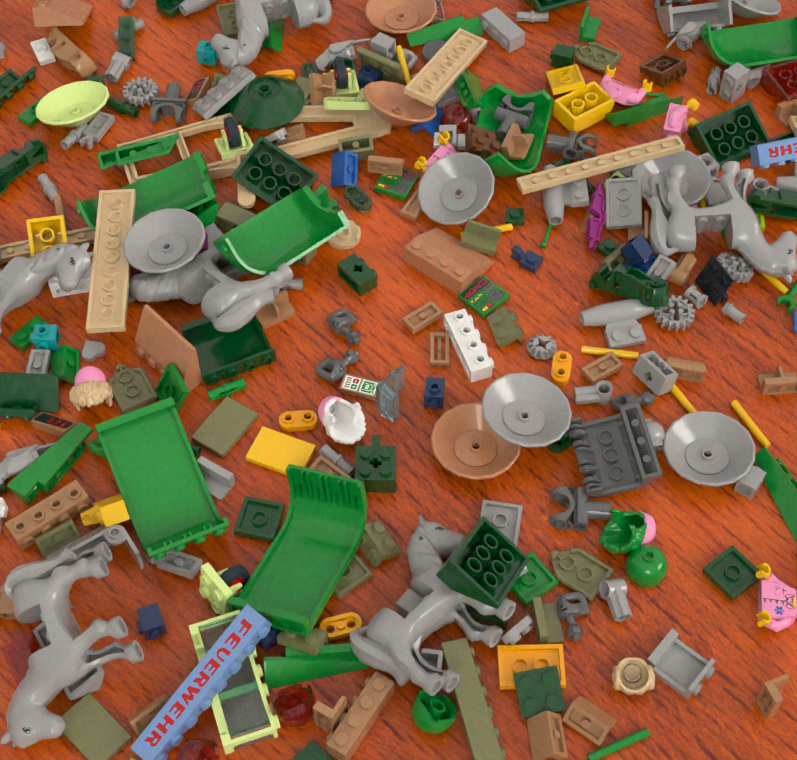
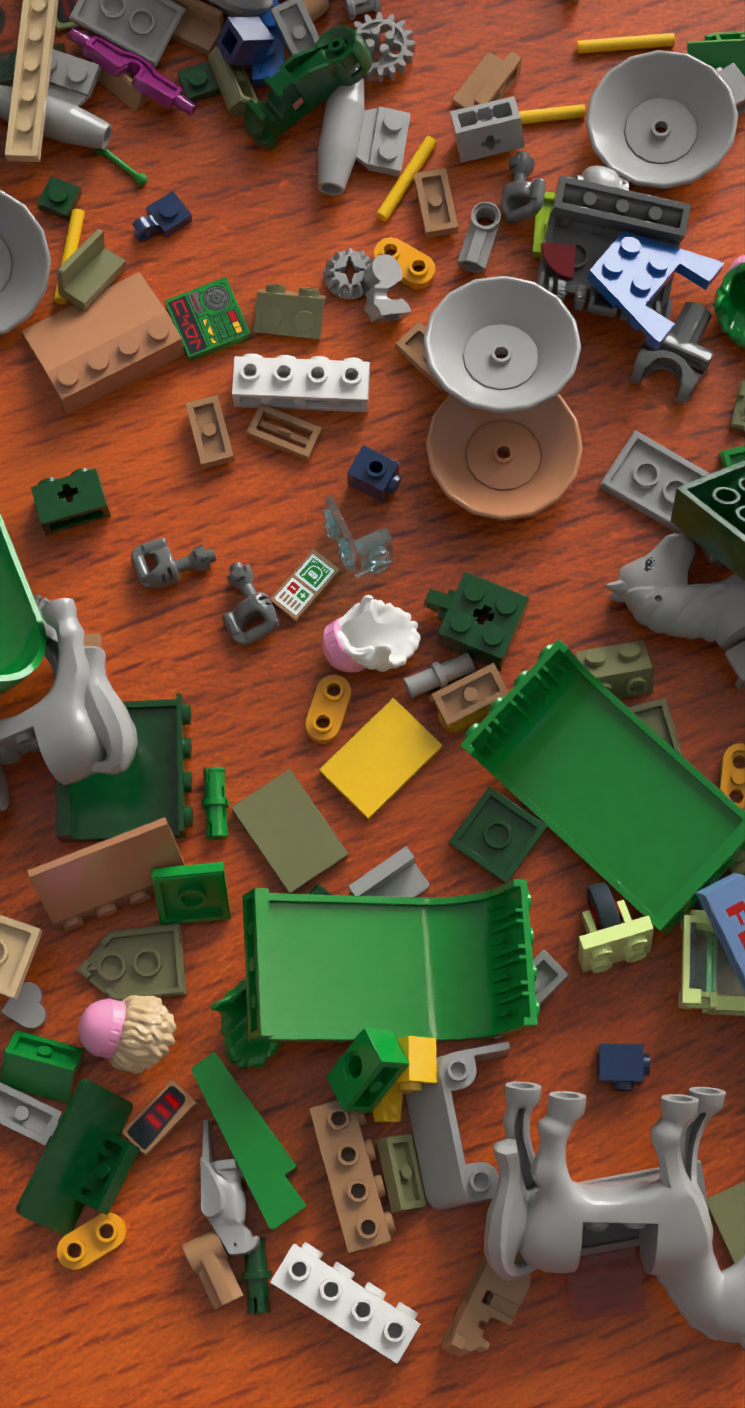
camera: 65 degrees left, 20 degrees up
(101, 492) = (367, 1070): none -> green brick
(543, 357) = (381, 276): none -> light grey leg
(596, 427) = (559, 259): none -> dark red tile
(608, 464) = (637, 270): none -> wing

